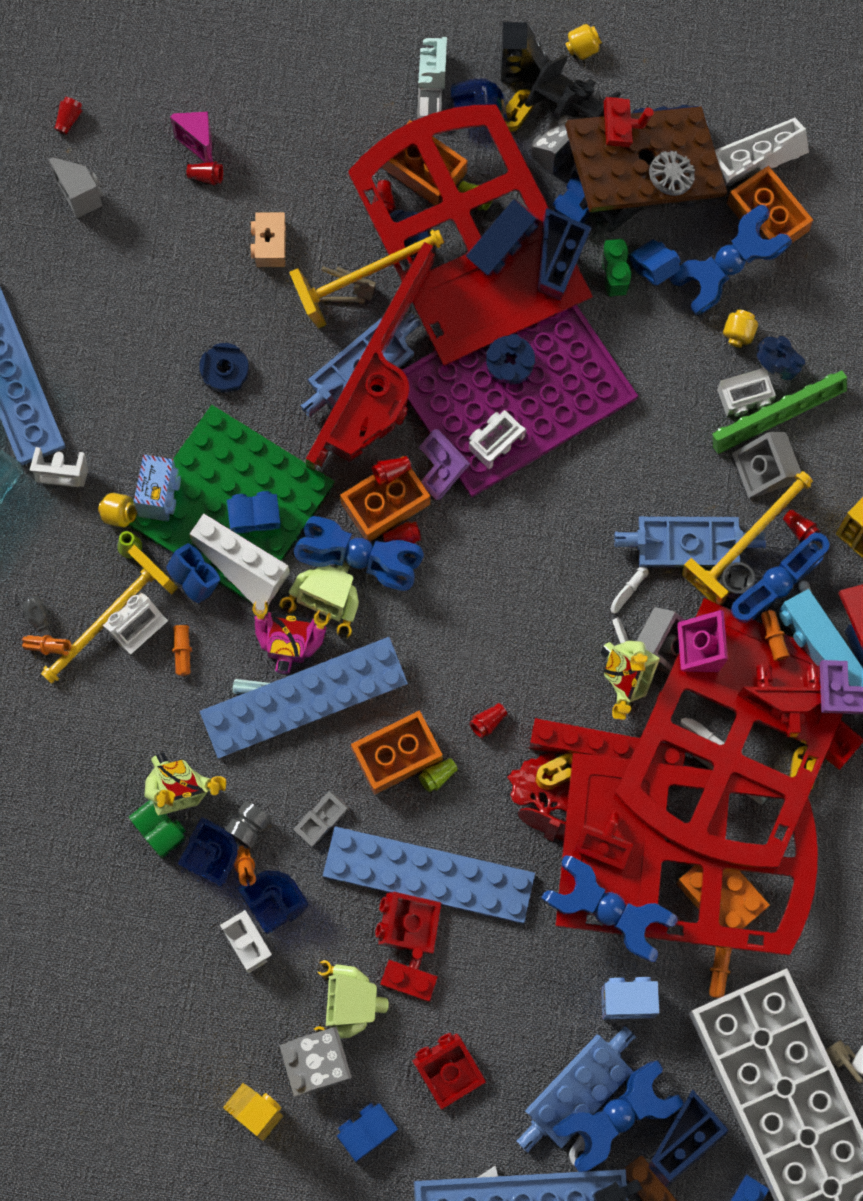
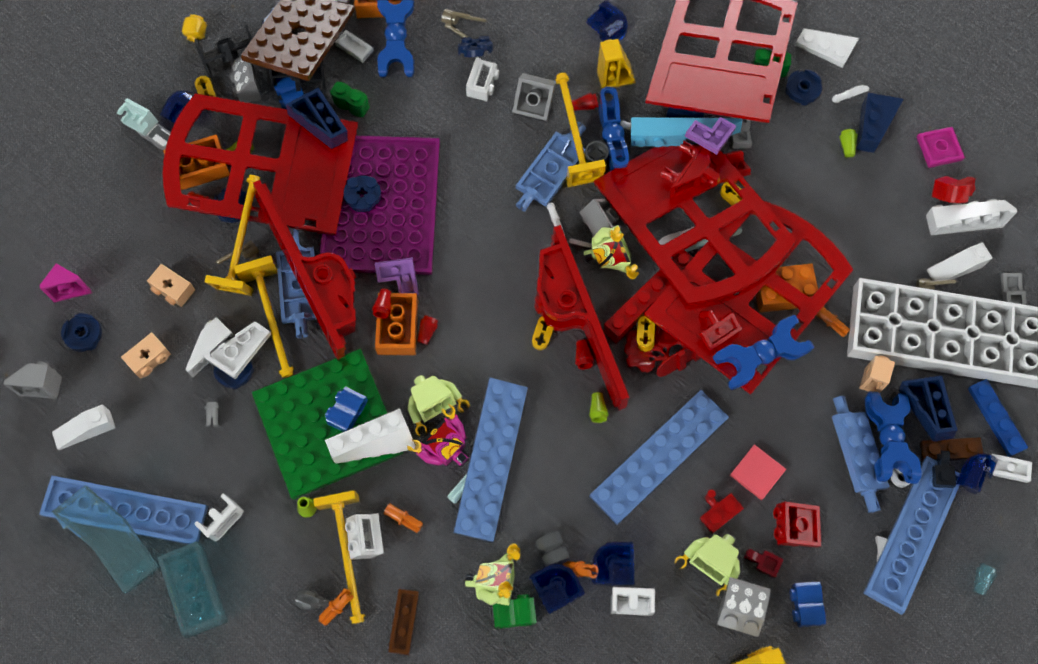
camera: 55 degrees left, 5 degrees down
(64, 267) = (84, 426): none -> white slope
(76, 723) = (403, 622): none -> reddish brown plate
(117, 510) = (277, 498): yellow head -> none
(156, 488) = (284, 460): light blue brick -> none
(163, 381) = (212, 413): none -> light grey pin
(164, 202) = (89, 339): none -> dark blue plate
(170, 263) = (136, 356): none -> light nougat brick
(194, 574) = (357, 475): blue brick -> none
(205, 172) = (94, 296): red cone -> none
(234, 325) = (209, 339): none -> white slope
(243, 360) = (238, 352): none -> white wing
(321, 818) = (578, 500): light grey slope -> none
(335, 546) = (406, 373): blue piece -> none
(343, 315) = (256, 271): none -> yellow tile
(384, 1062) = (766, 562): none -> dark red plate
(396, 752) = (568, 423): orange brick -> none
(408, 922) = (684, 488): red plate -> none
(482, 992) = (758, 472): none -> coral tile
(485, 654) = (537, 333): none -> yellow beam
(495, 438) = (408, 232): white window -> none
(503, 238) = (284, 142): dark blue wedge -> none
(520, 54) = (172, 64): black wedge -> none
(550, 652) = (568, 306): none -> red piece
(619, 121) = (267, 28): red plate -> none
(630, 999) = (821, 382): light blue brick -> none
(655, 261) = (364, 74): blue brick -> none
(672, 173) = (320, 20): light grey wheel -> none
(683, 1056) = (877, 374): none -> light nougat brick
(687, 226) = (354, 46): none -> white plate
(703, 643) = (625, 194): dark pink slope -> none
(740, 328) = (440, 57): yellow head -> none
(774, 635) = (647, 155): orange axle -> none
(779, 412) = (507, 62): bright green plate -> none
(803, 306) = (451, 17): none -> dark tan plant

